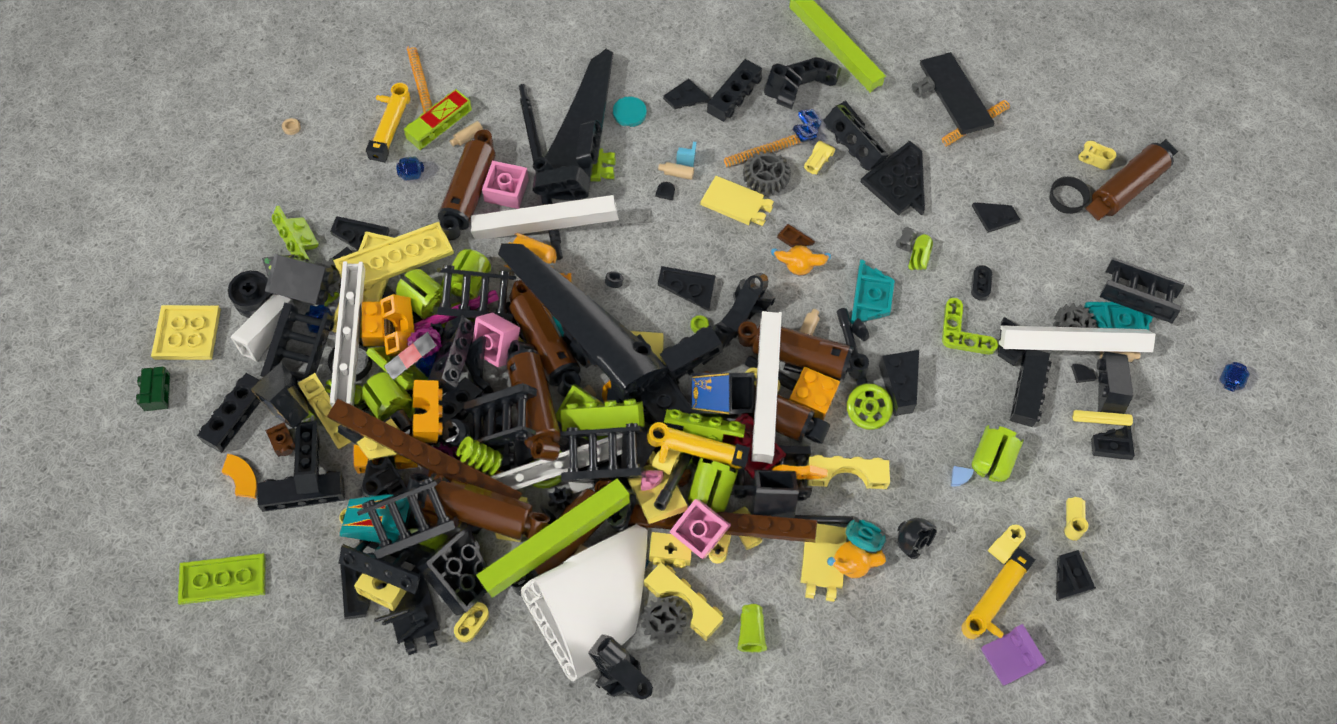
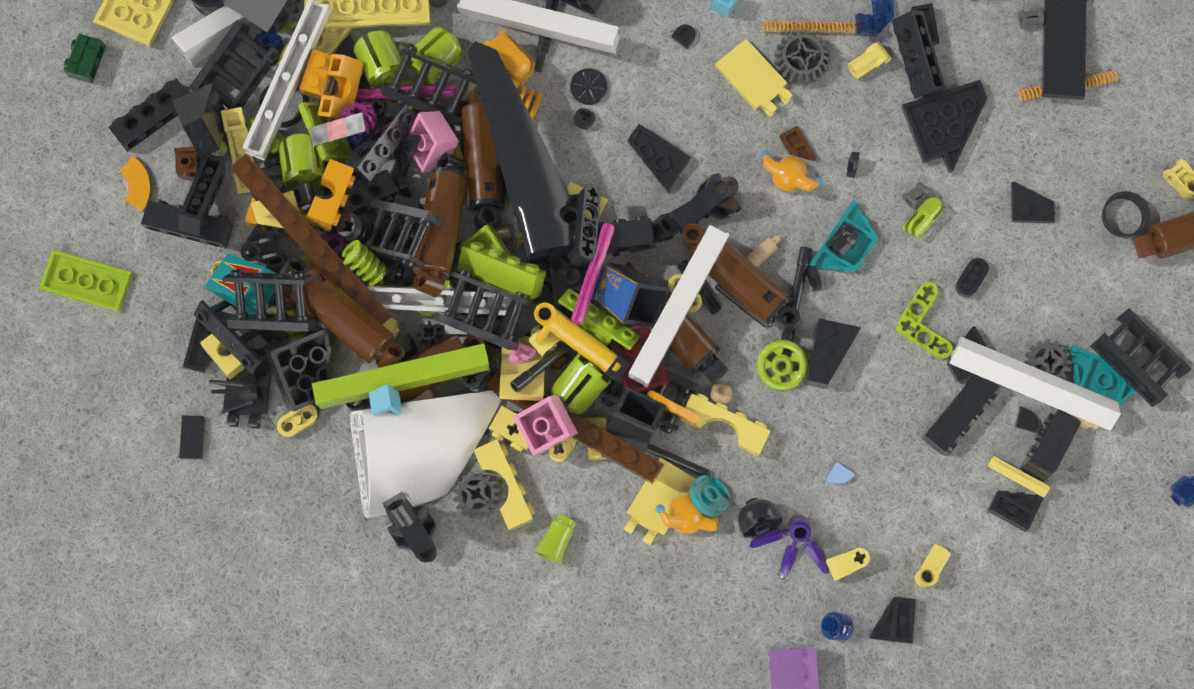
camera: 25 degrees right, 15 degrees up
(376, 679) = (191, 437): none -> black tile
(548, 561) = (385, 399): none -> medium azure panel
(606, 255) = (588, 86): none -> black wheel
(666, 366) = (581, 252): none -> black beam
(677, 170) = (707, 16): tan cylinder -> none
(683, 386) = (592, 274): none -> dark pink axle
(698, 322) = (650, 204): lime tile -> none
(815, 391) = (730, 328): light orange brick -> none
(832, 448) = (721, 393): none -> tan tile
(845, 234) = (852, 164): none -> black tile
(869, 291) = (842, 240): none -> black rock
(954, 532) = (797, 535): none -> dark purple plant
(988, 448) = (892, 477): lime cylinder -> none
(996, 595) = (812, 607): yellow piece -> none
(1027, 600) = (837, 626): none -> clear blue head

